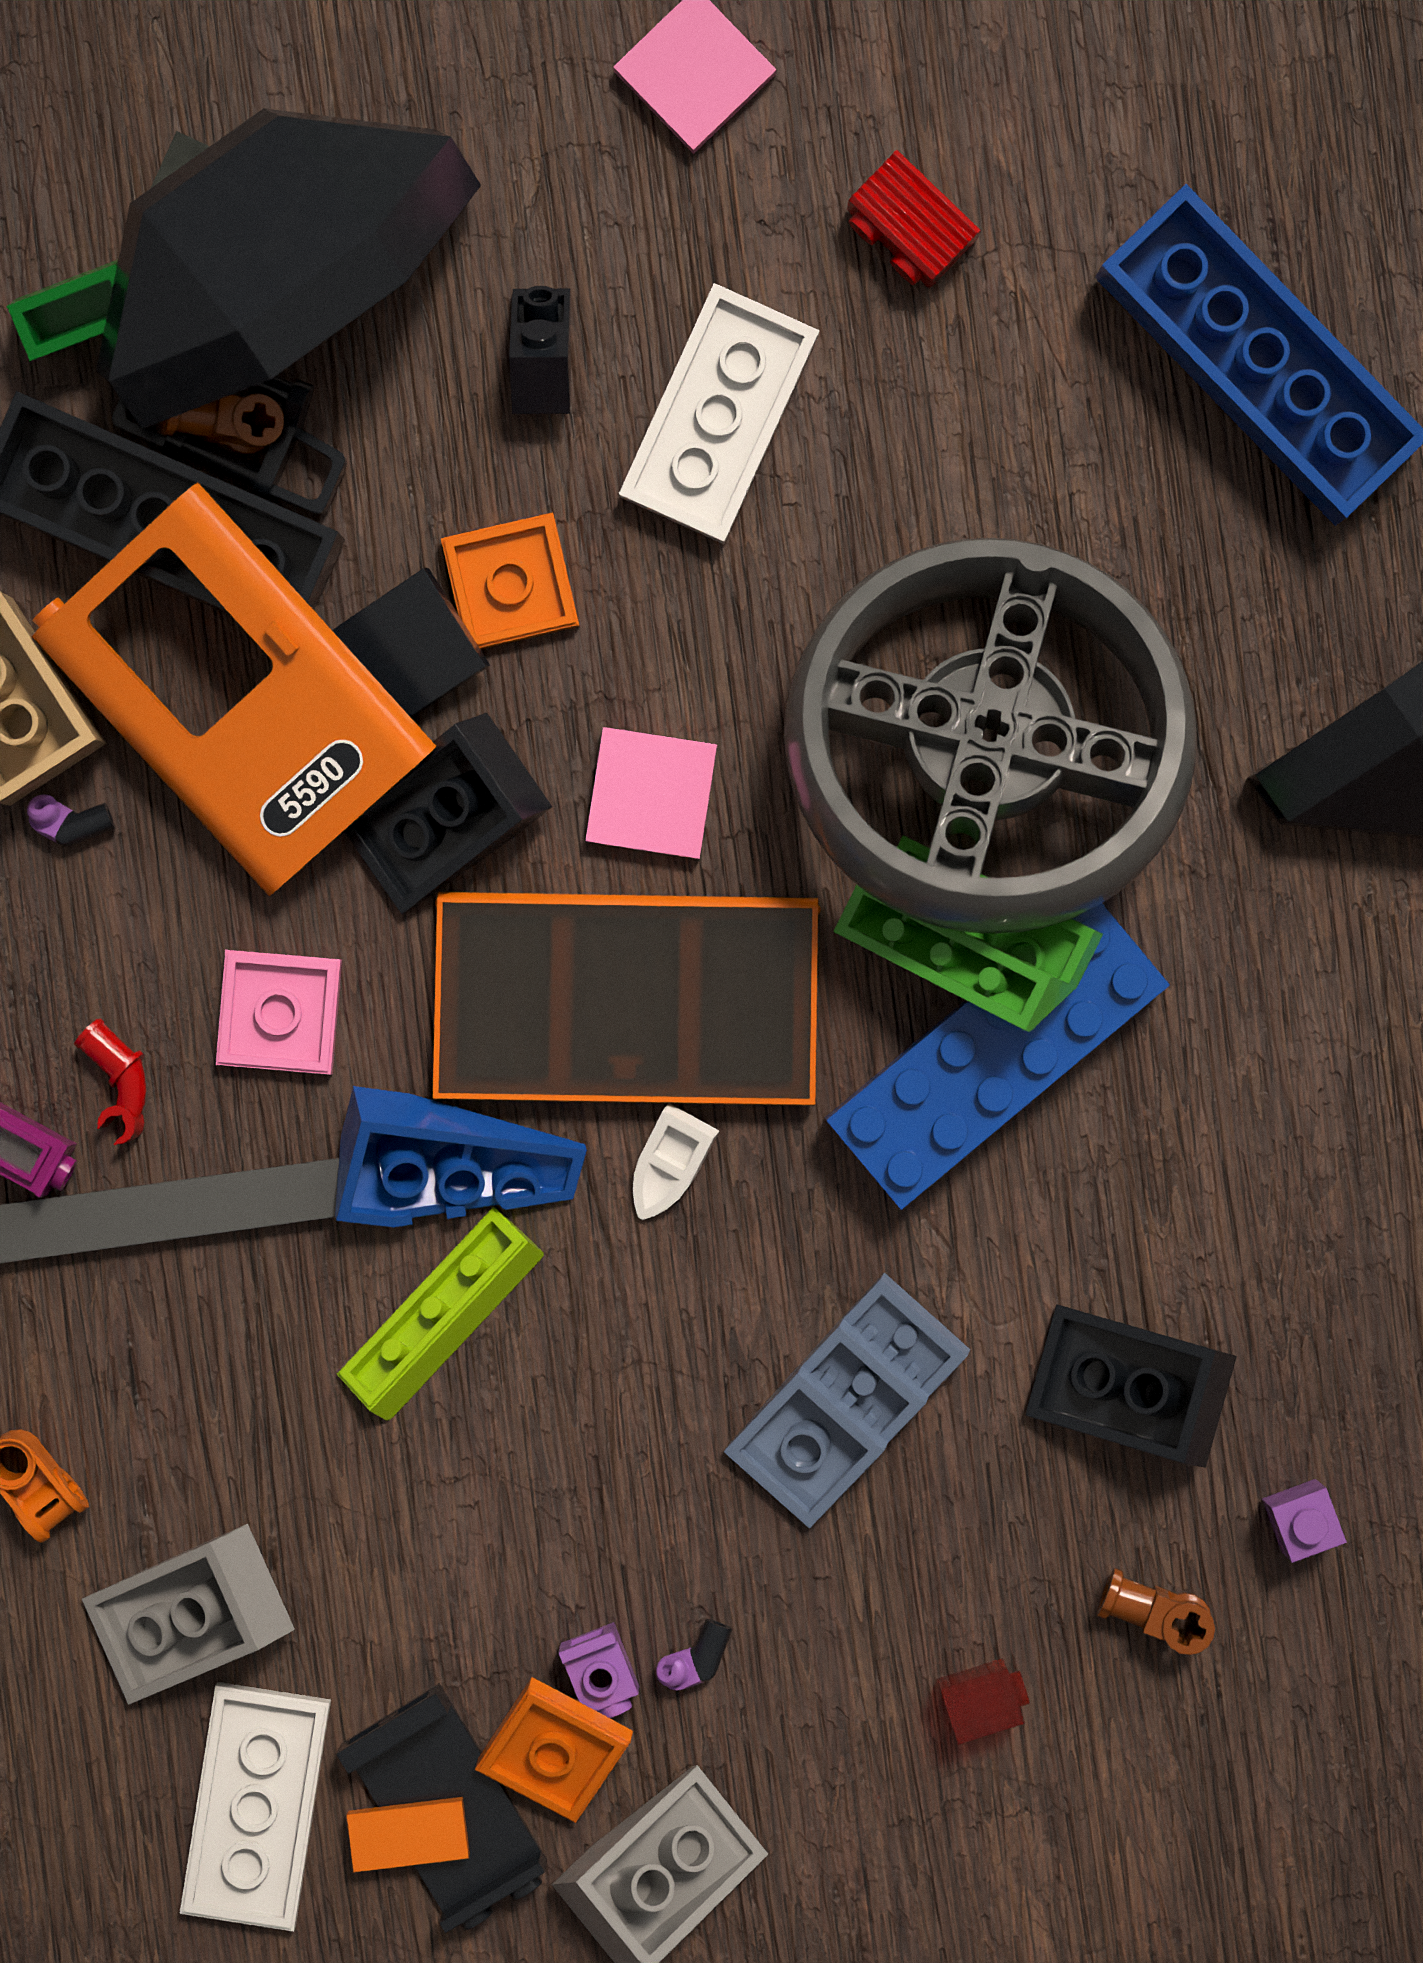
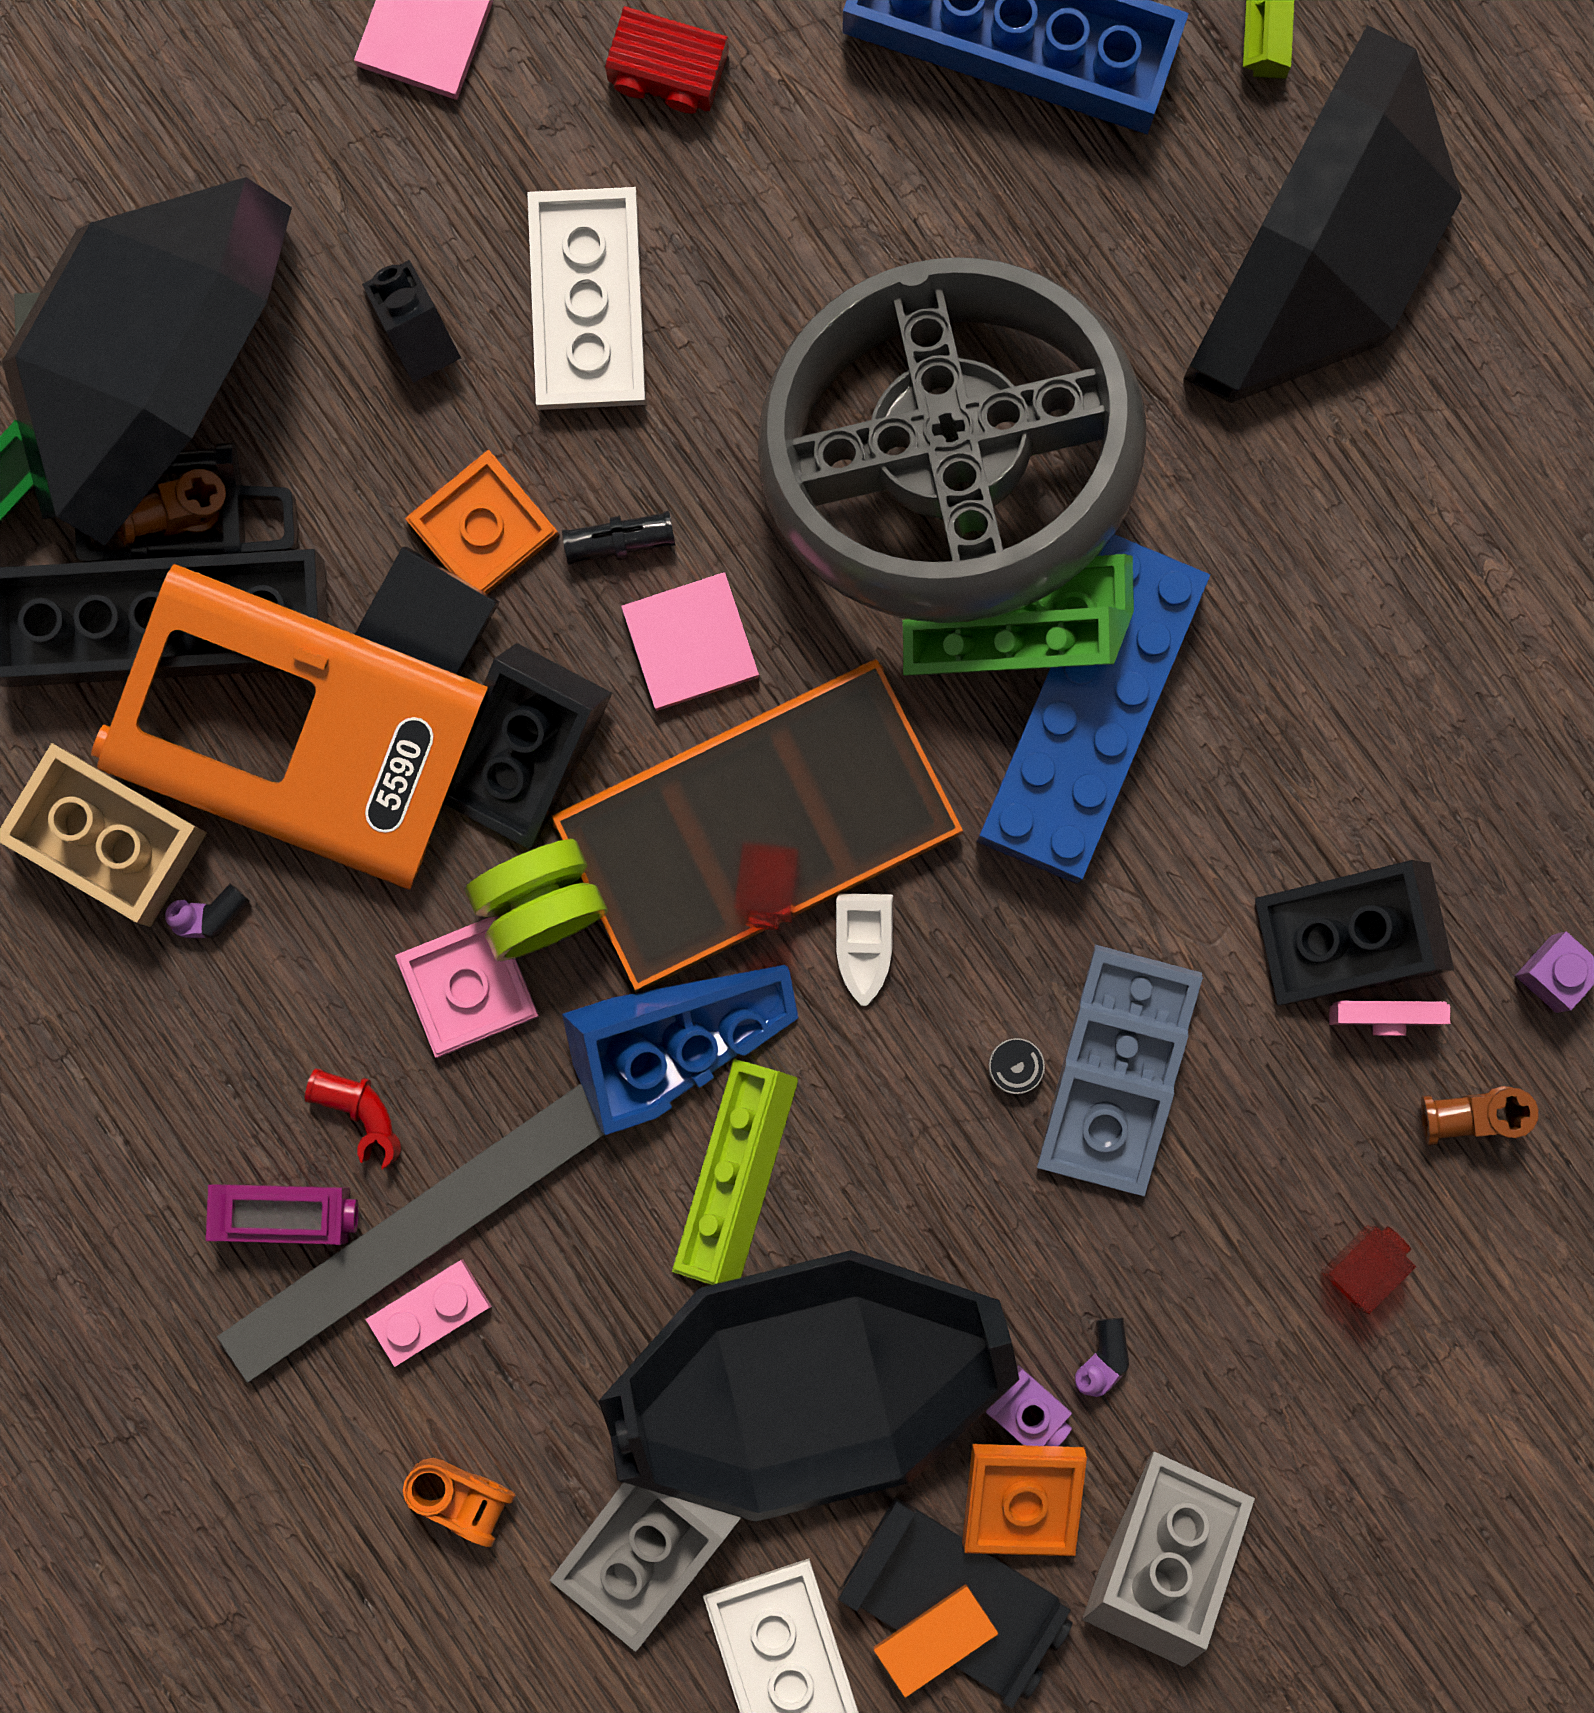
camera: 20 degrees left, 5 degrees down
(92, 1298) = (428, 1312): none -> bright pink plate
(381, 968) = (535, 899): none -> lime wheel
(405, 1546) = (807, 1386): none -> black panel
(604, 1065) = (767, 885): none -> clear red brick
(633, 660) = (618, 537): none -> black pin
(752, 1347) = (1016, 1066): none -> black tile
(1122, 1479) = (1389, 1017): none -> bright pink plate

